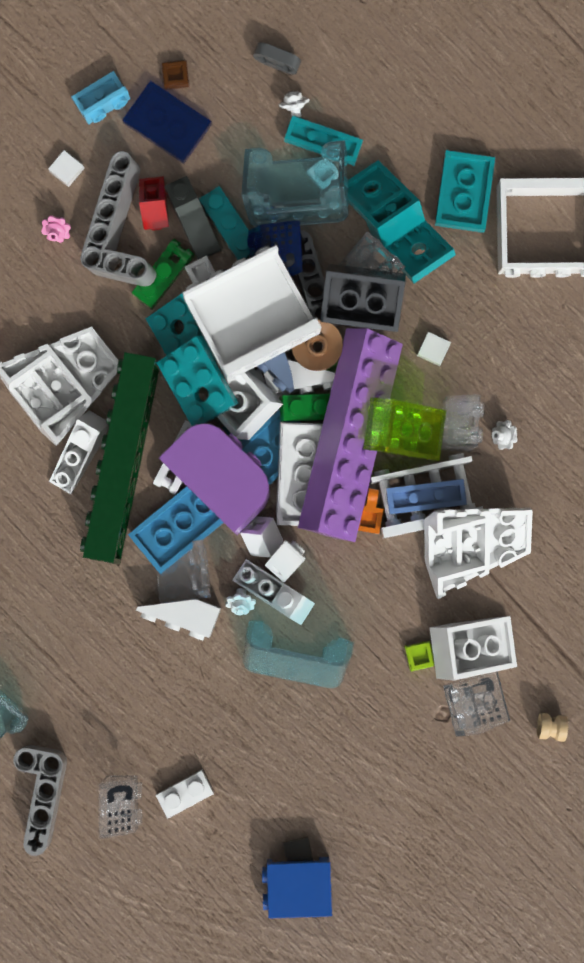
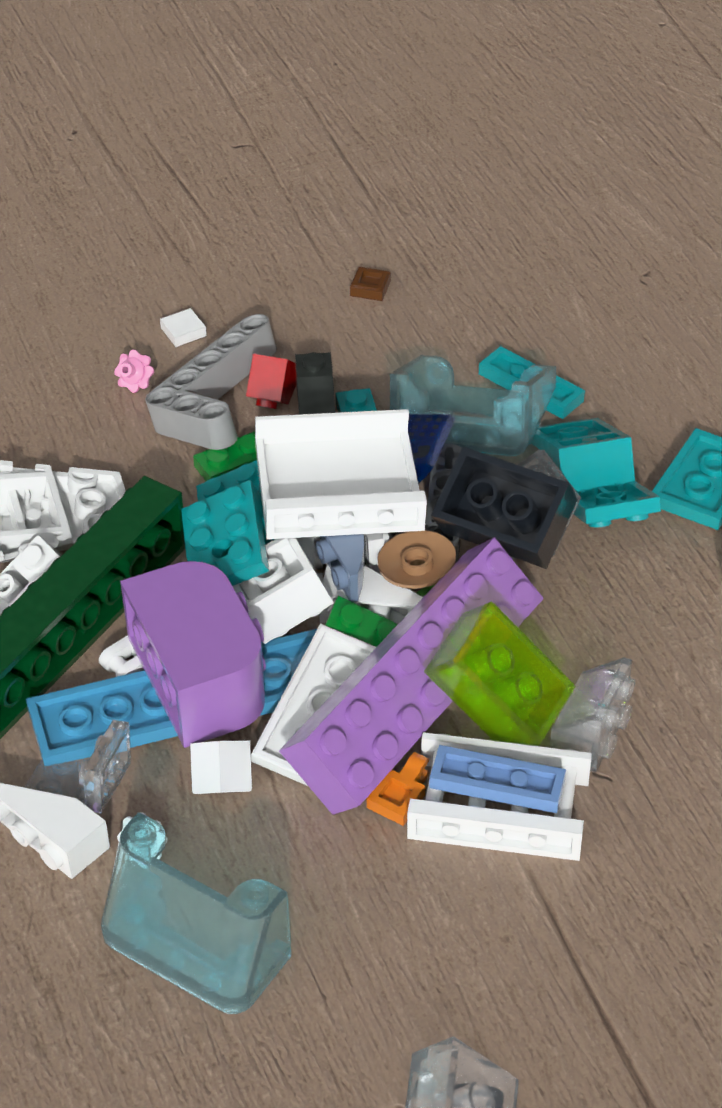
camera: 25 degrees right, 40 degrees down
(101, 98) = (265, 276): medium azure bracket -> none
(167, 122) = (336, 320): clear blue tile -> none
(273, 592) = (205, 844): white slope -> none
(277, 58) = (507, 296): dark grey beam -> none
(286, 560) = (238, 788): white slope -> none
(294, 102) = (509, 336): white plant -> none
(419, 655) = (394, 1012): lime tile -> none
(433, 349) = (590, 632): white tile -> none
(472, 543) = (552, 859): white wedge -> none
(473, 648) = (493, 1014): white slope -> none
(504, 434) = (657, 756): white plant -> none

